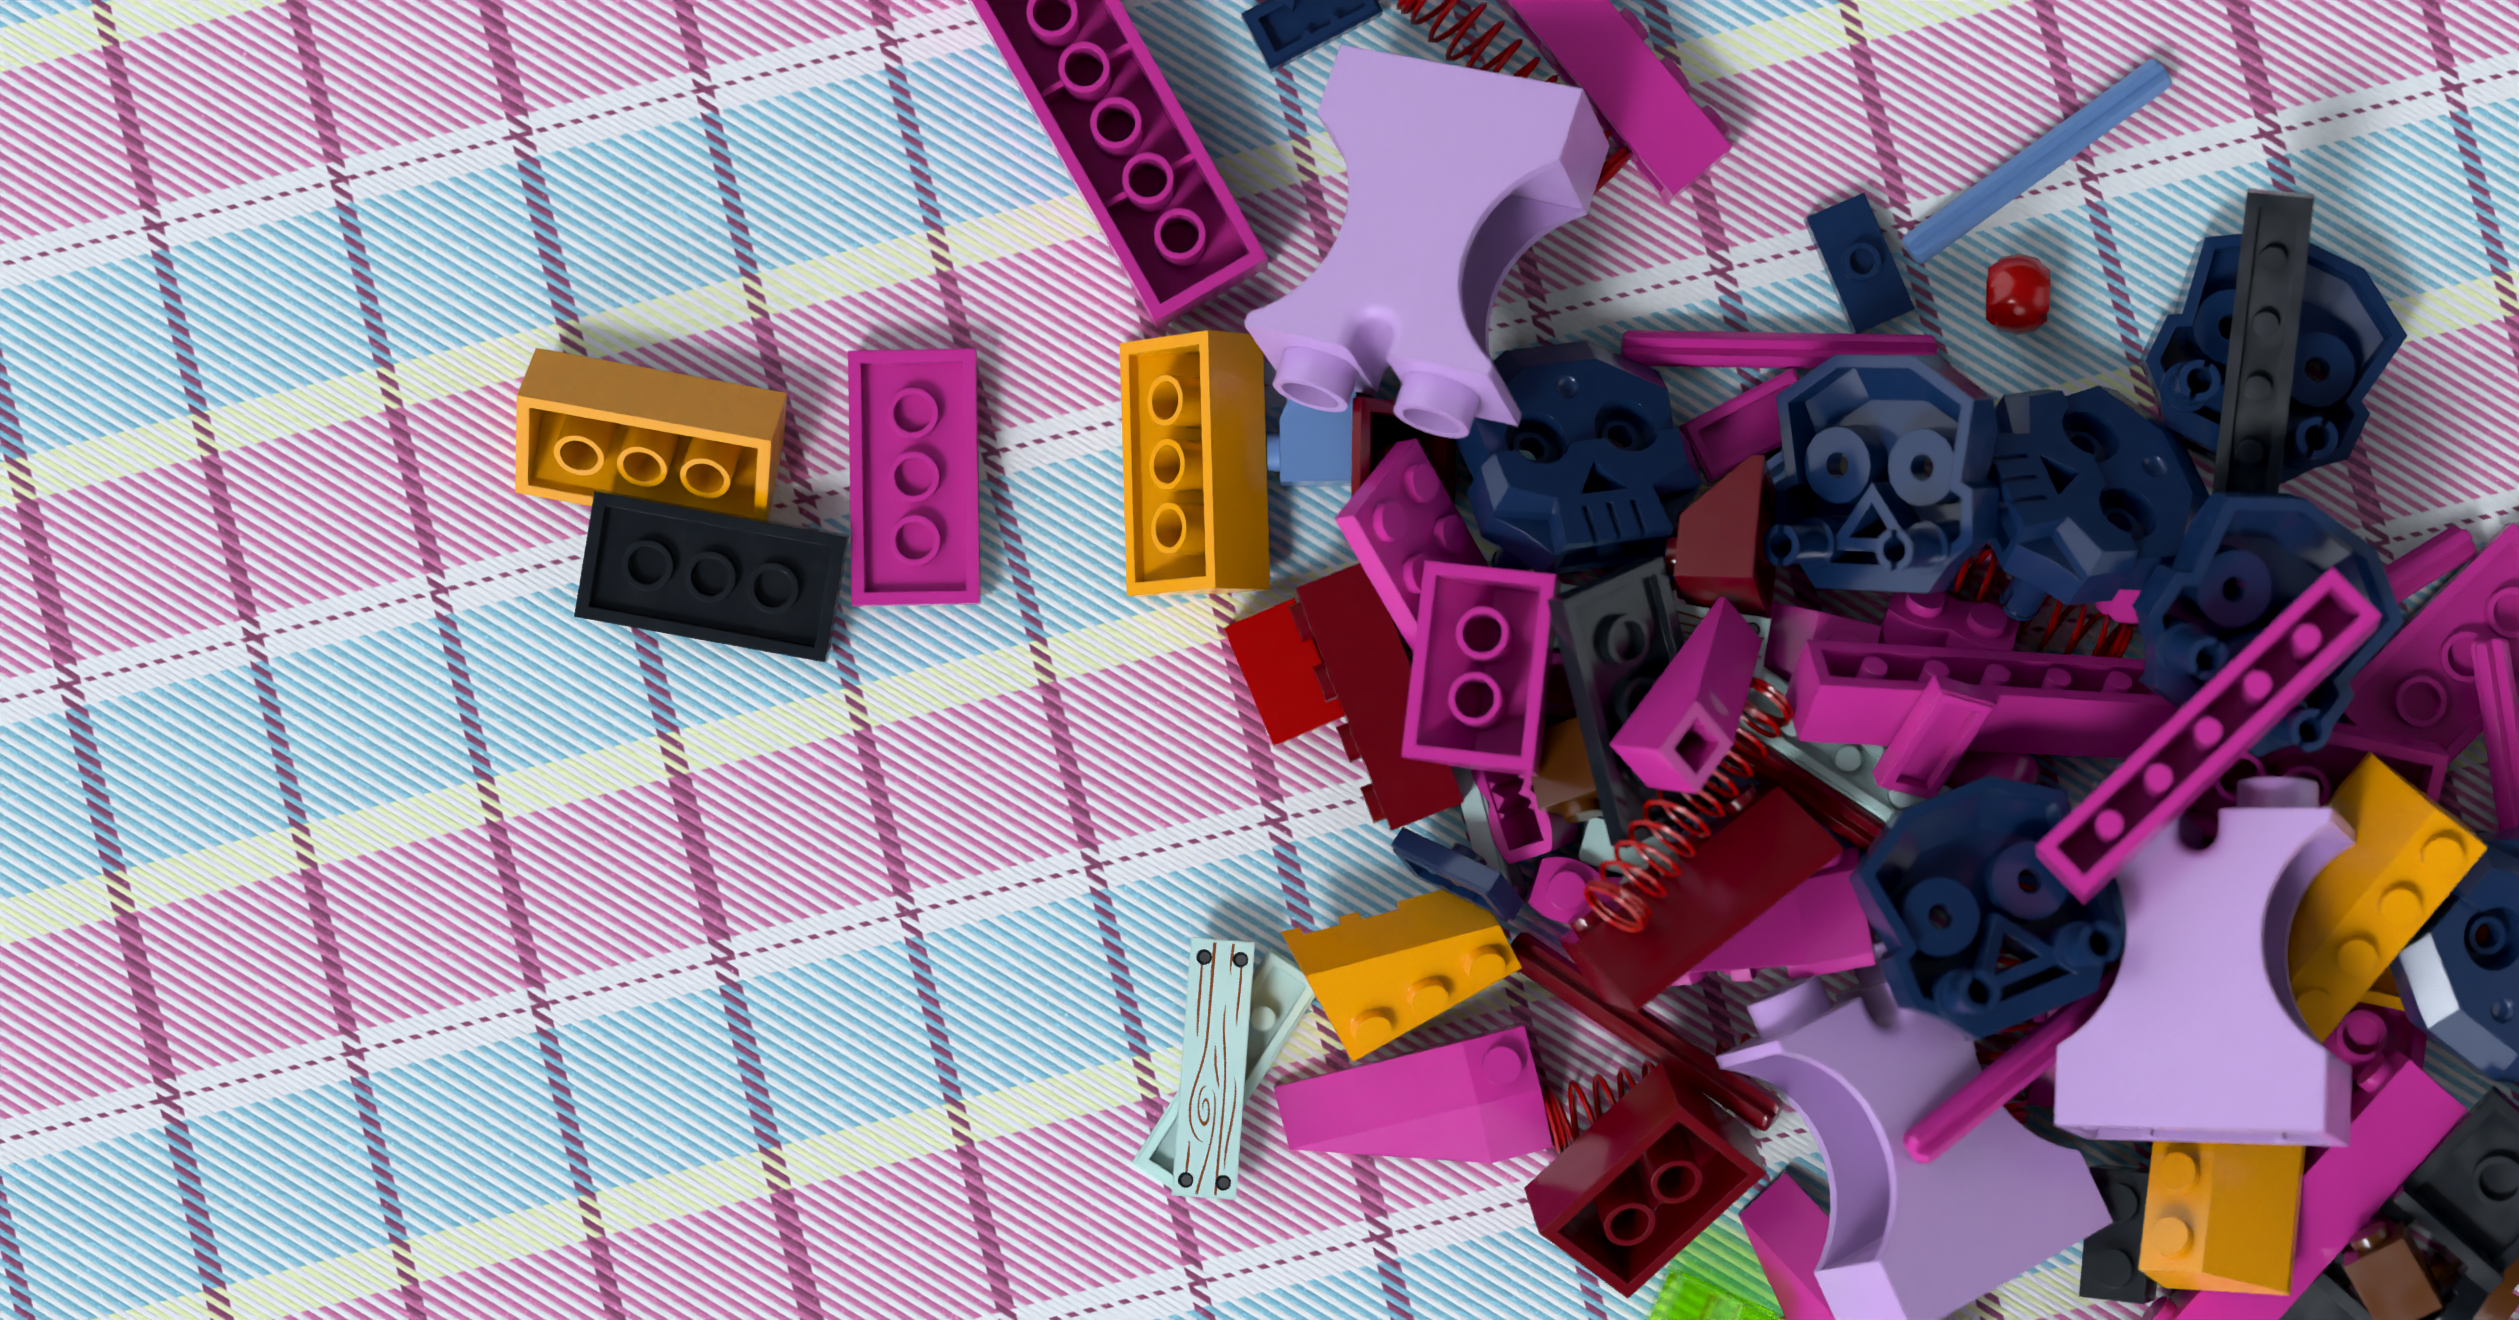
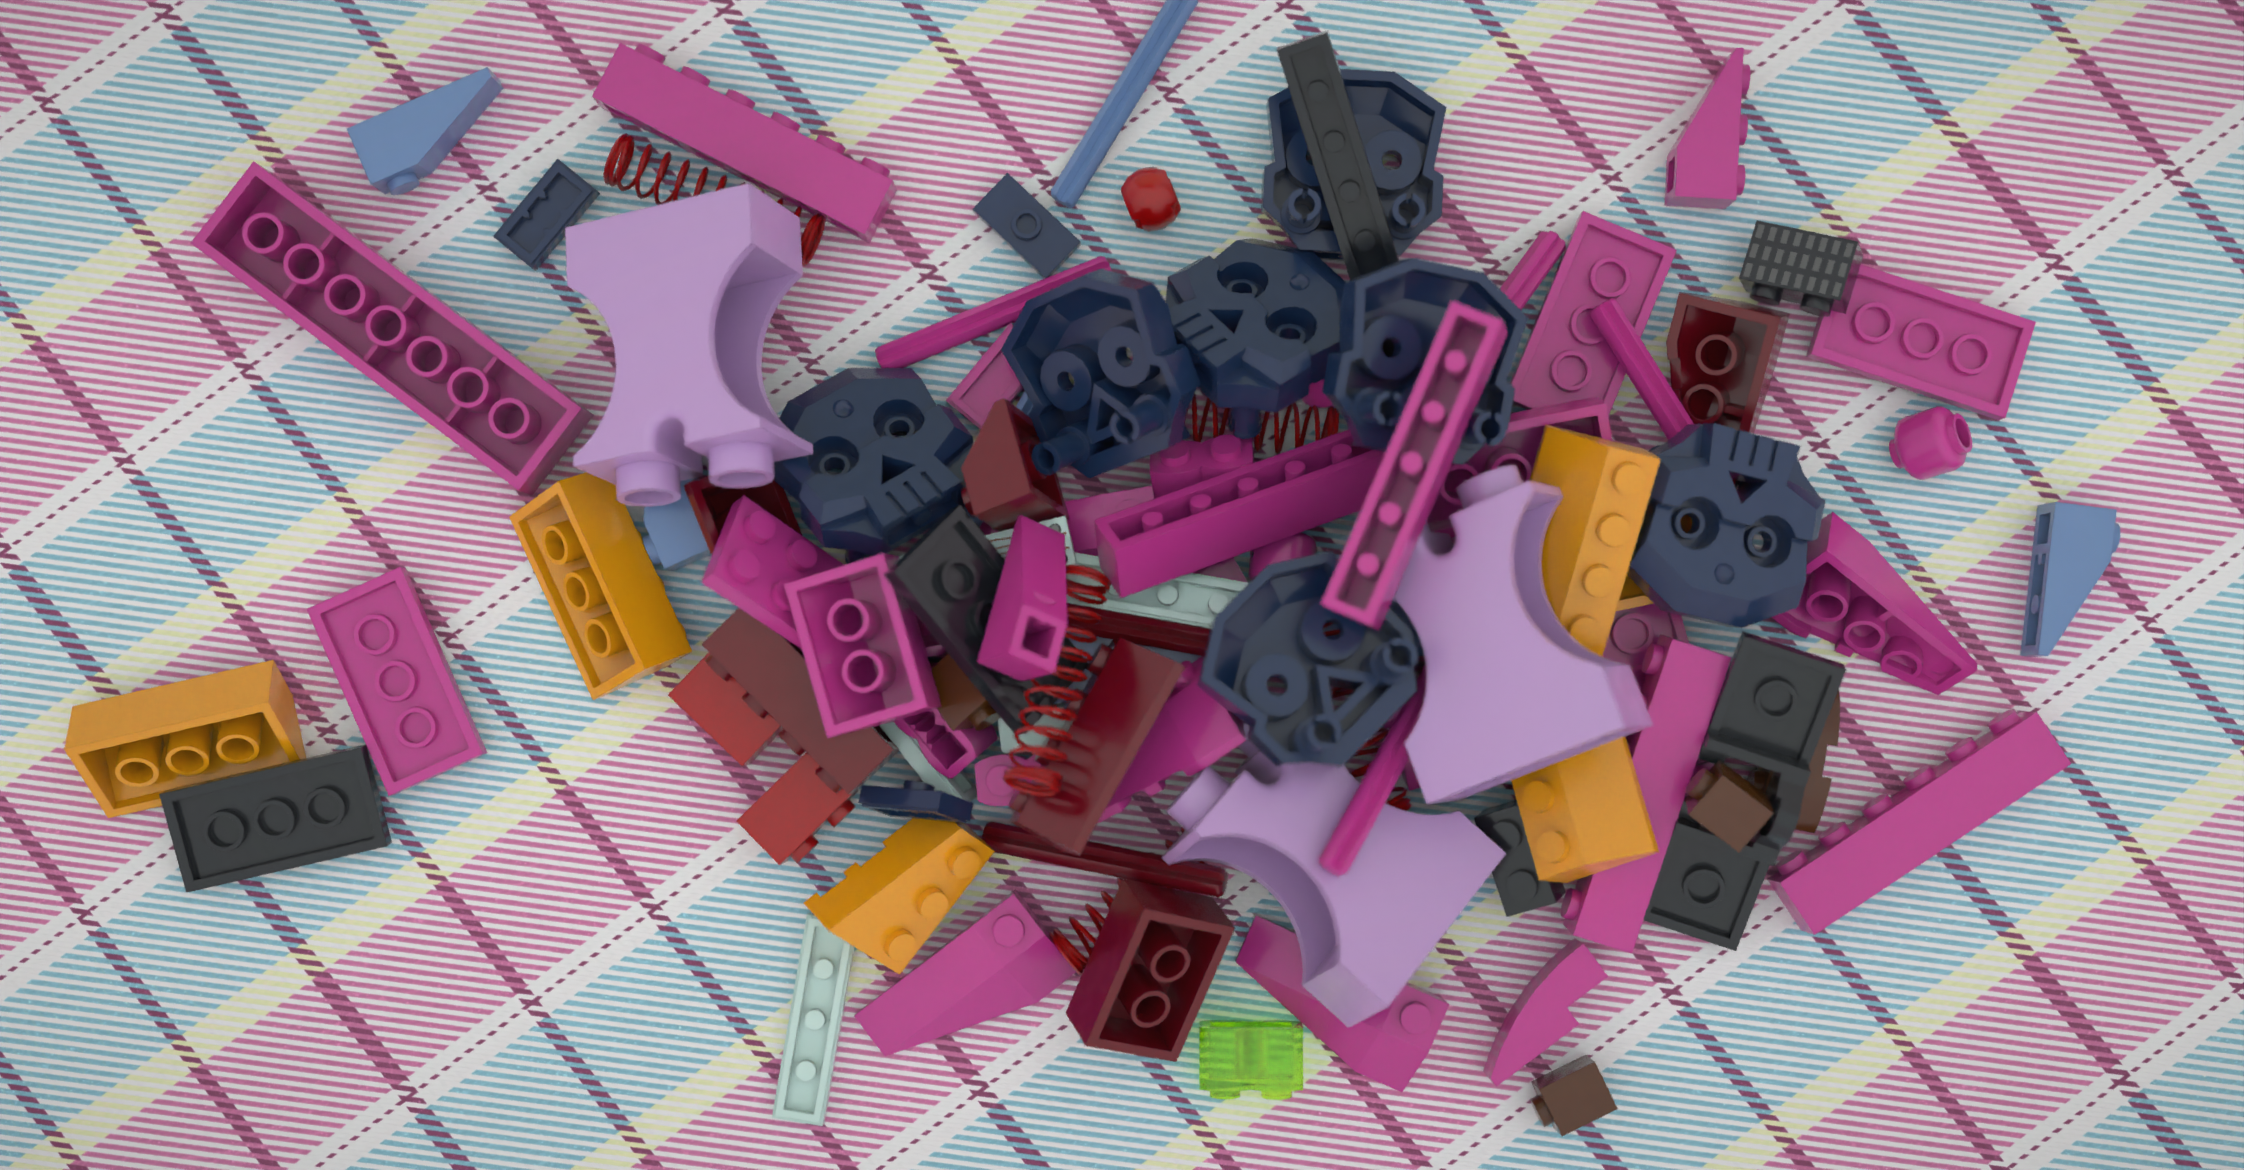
camera: 25 degrees left, 0 degrees up
(1213, 1068) = (800, 1022): light aqua tile -> none
(1312, 822) = (794, 811): none -> red brick
(1933, 737) = (1219, 552): dark pink tile -> none

